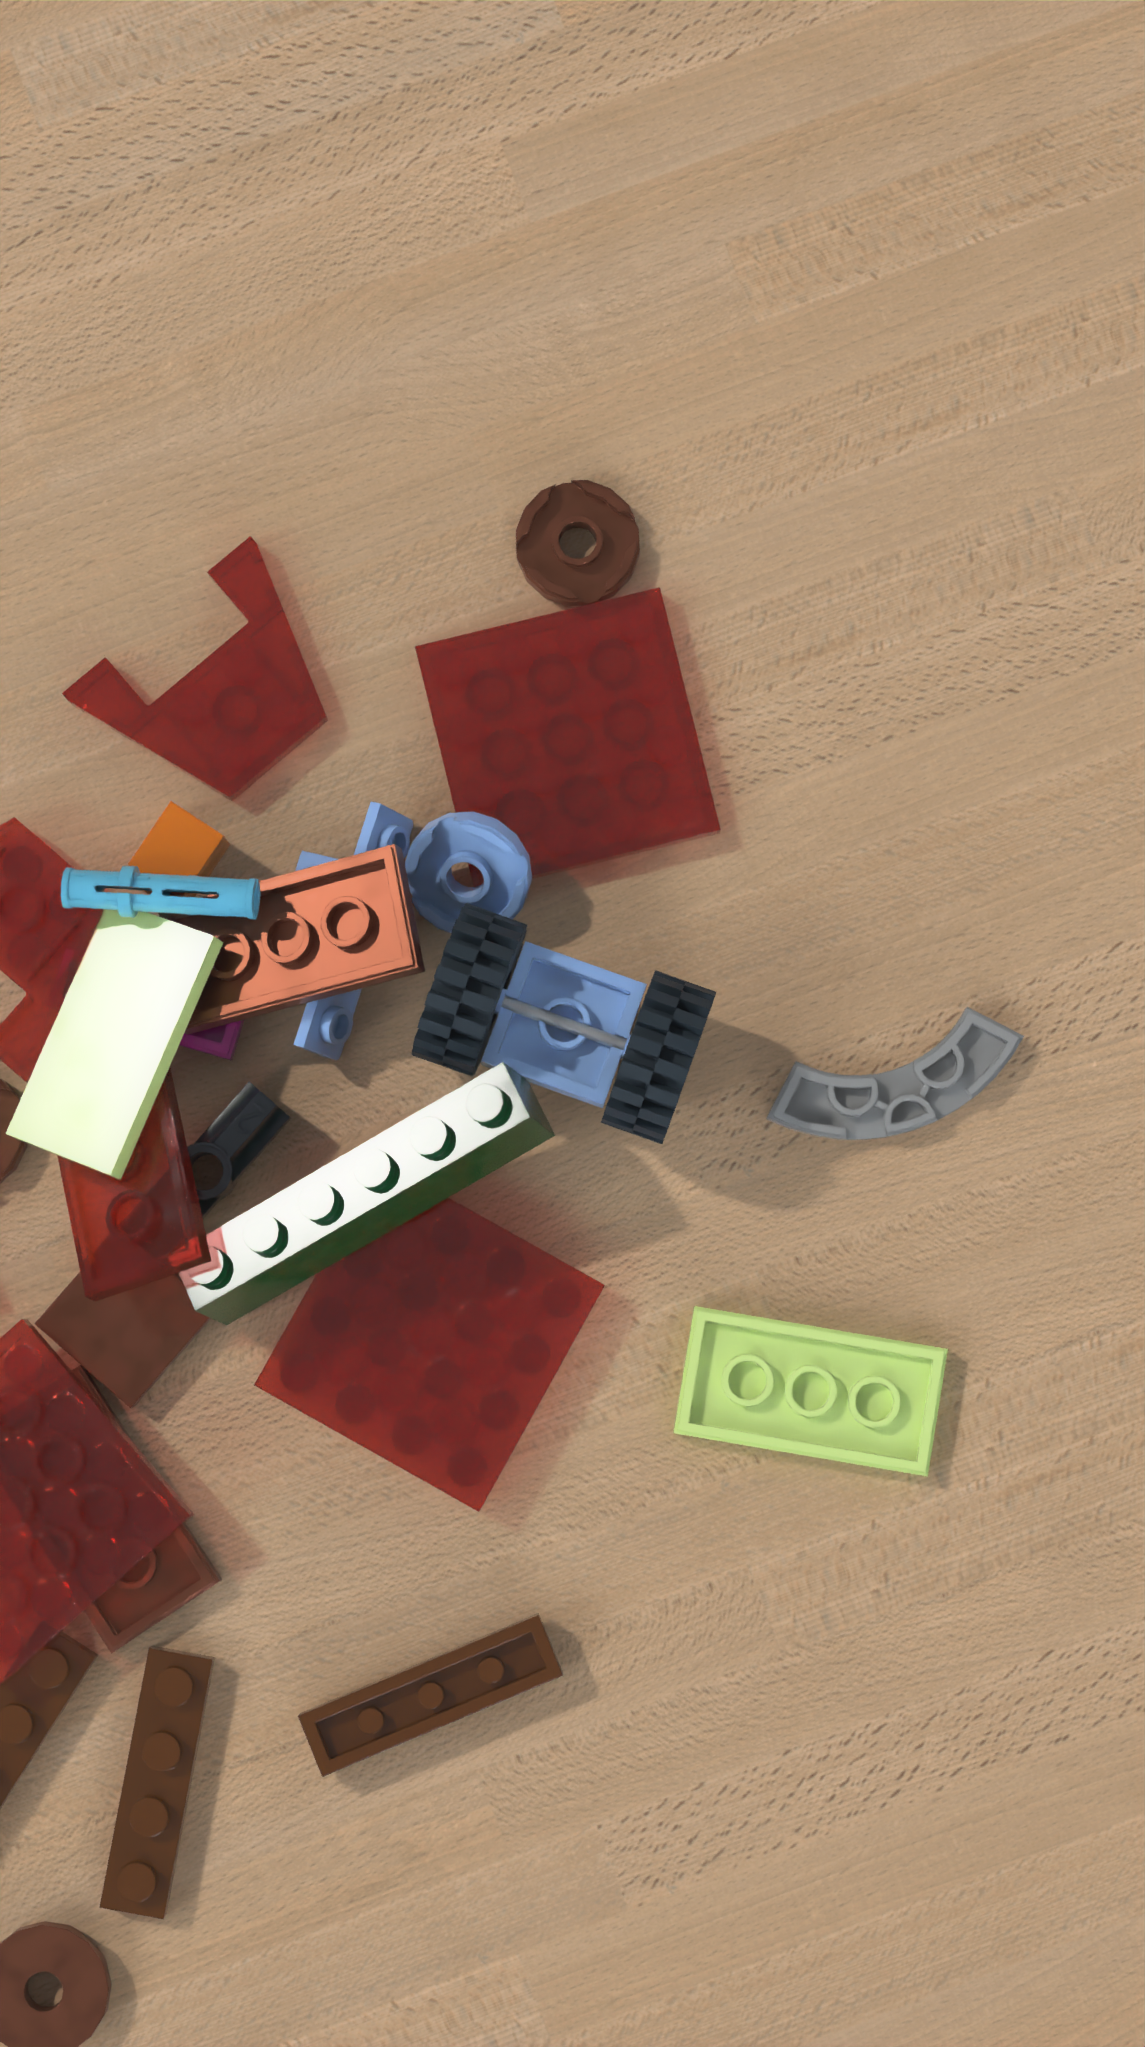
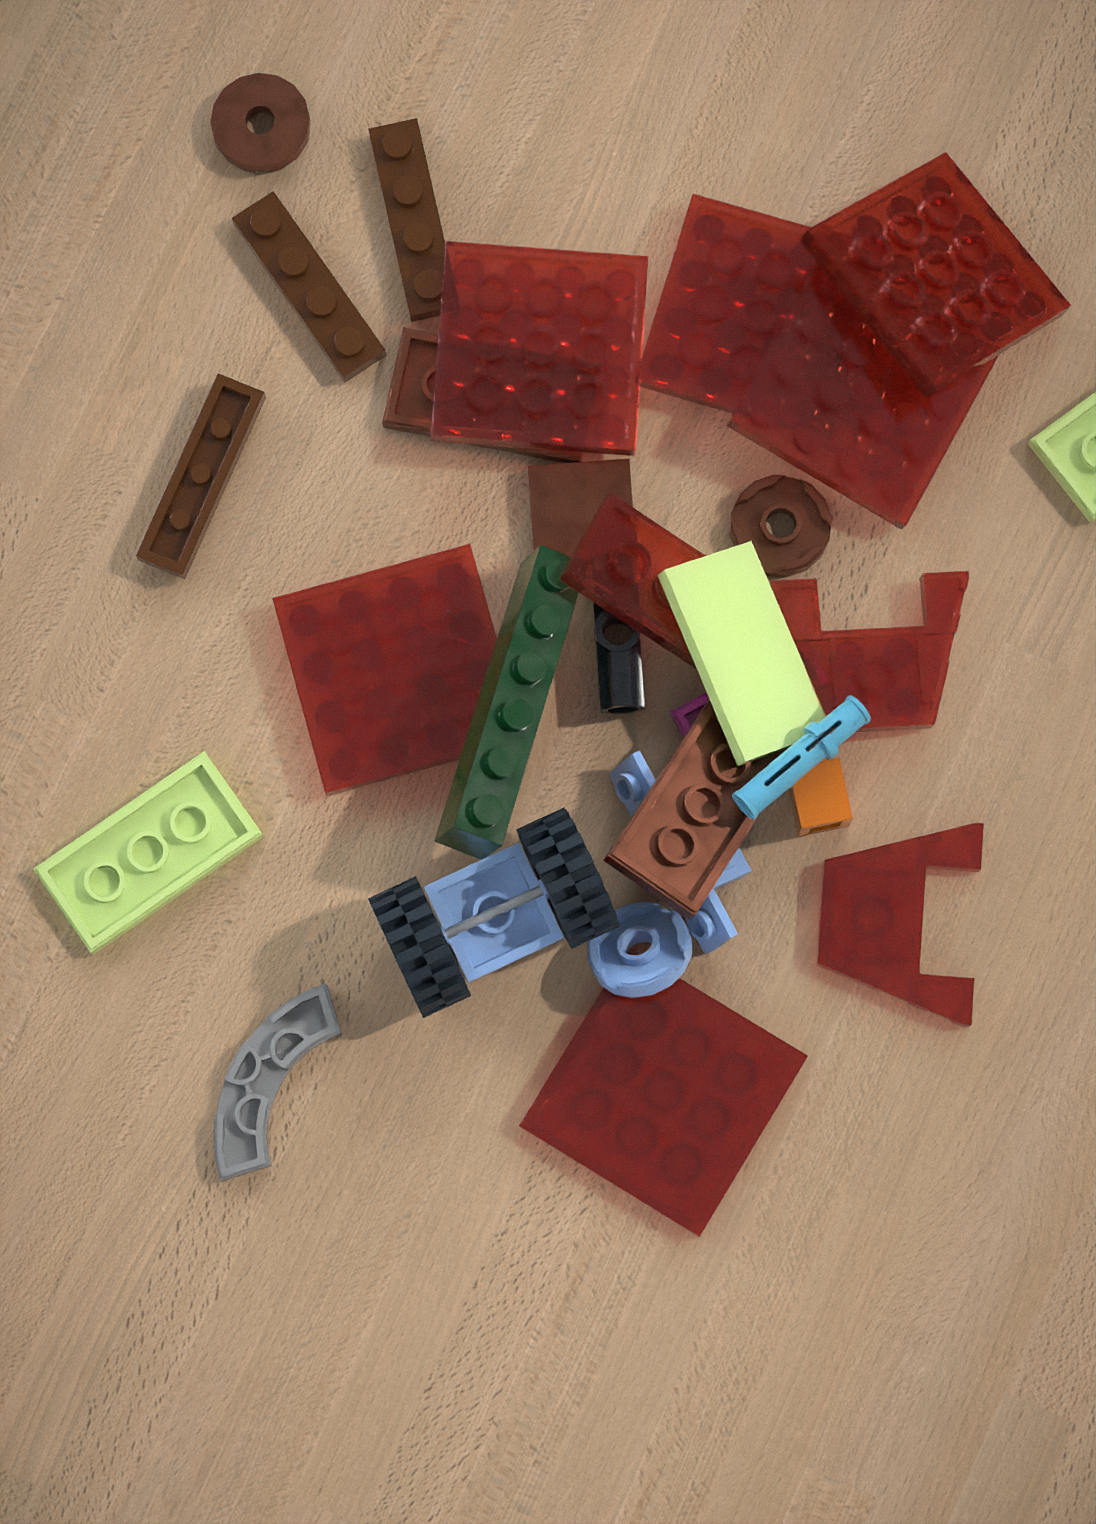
camera: 140 degrees right, 5 degrees down
(572, 579) = (808, 1214): copper tile -> none

